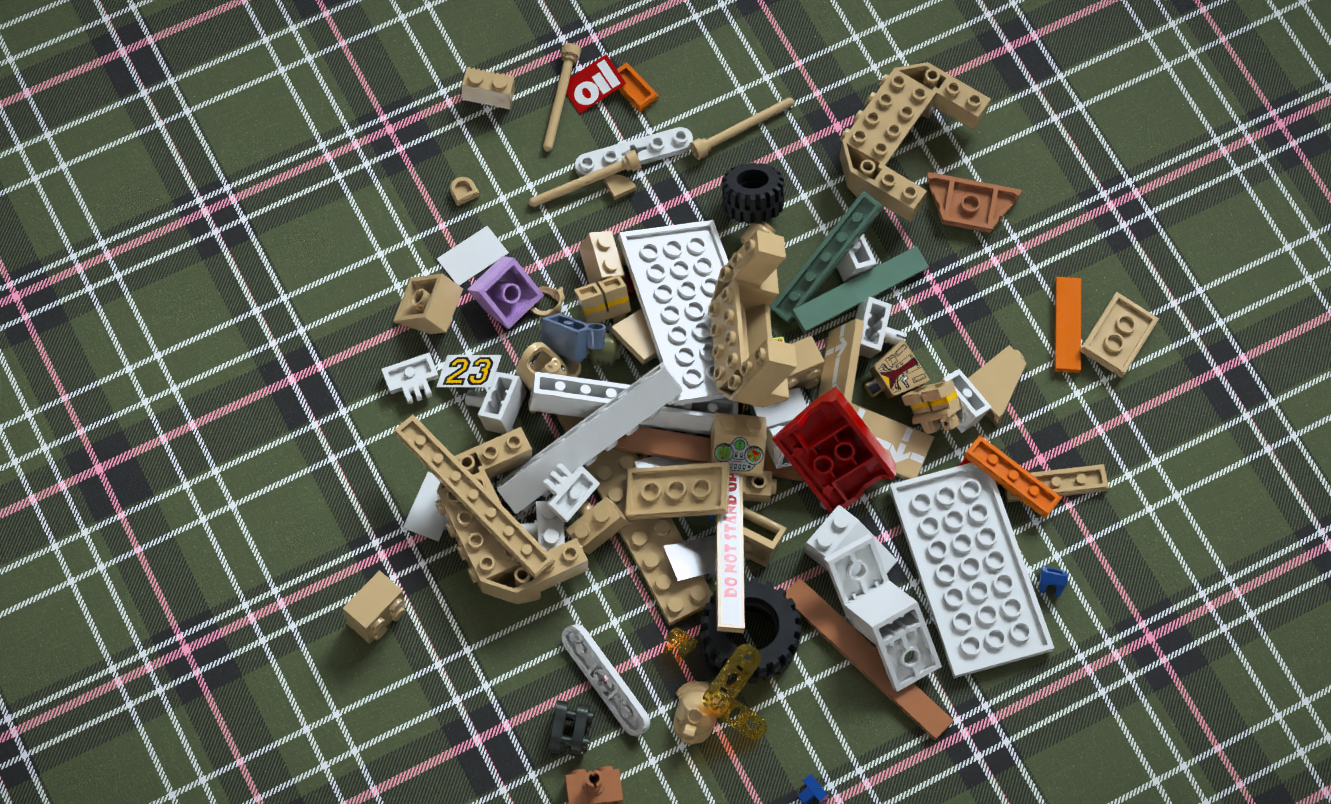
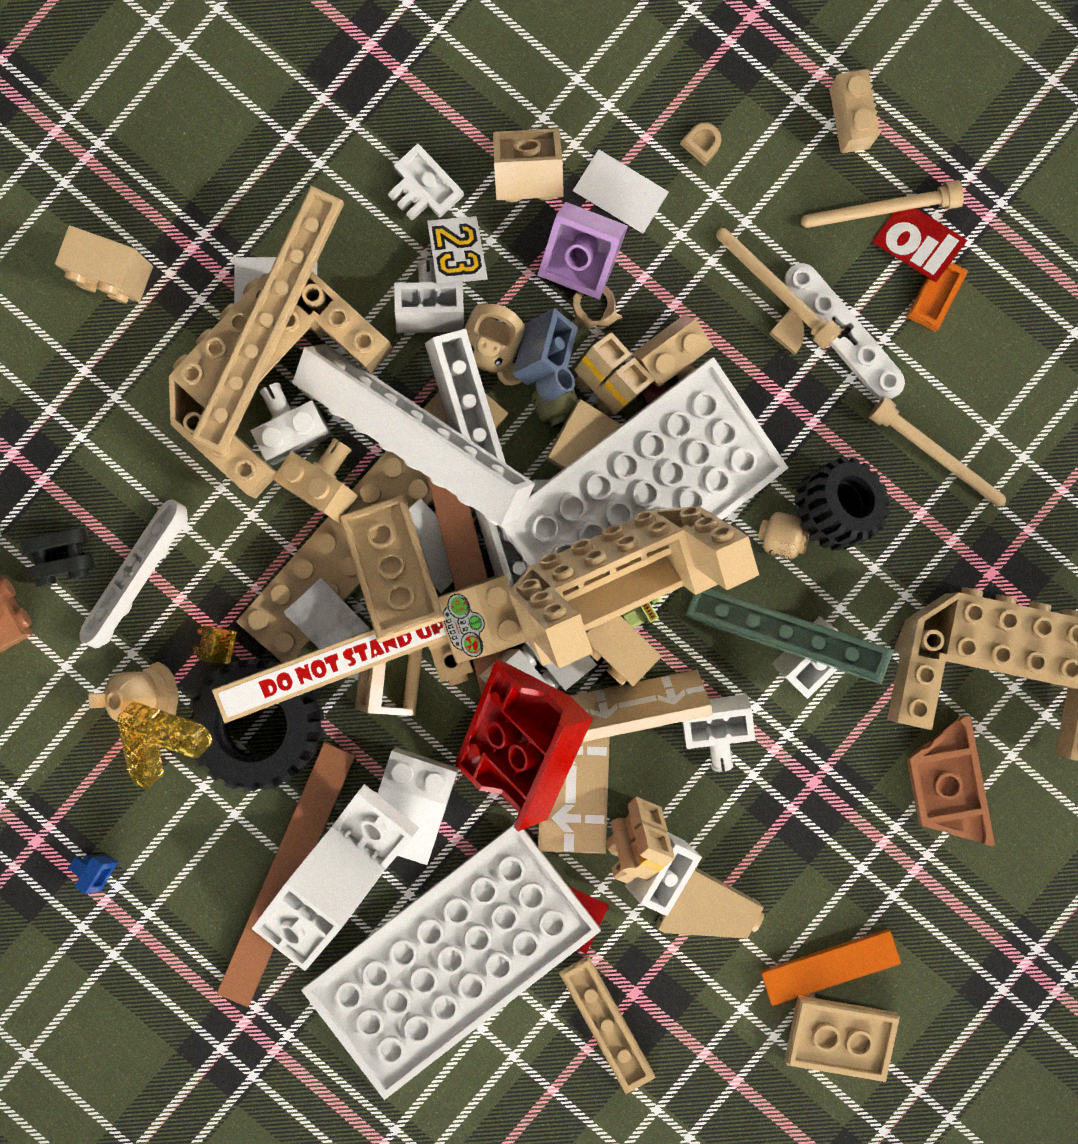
camera: 75 degrees right, 20 degrees up
(569, 490) = (331, 436): white hinge -> none
(859, 288) = (767, 689): sand green tile -> none
(896, 372) = (669, 776): tan torso -> none
(1012, 476) = (587, 972): orange tile -> none
(1054, 577) = (477, 1066): blue tile -> none

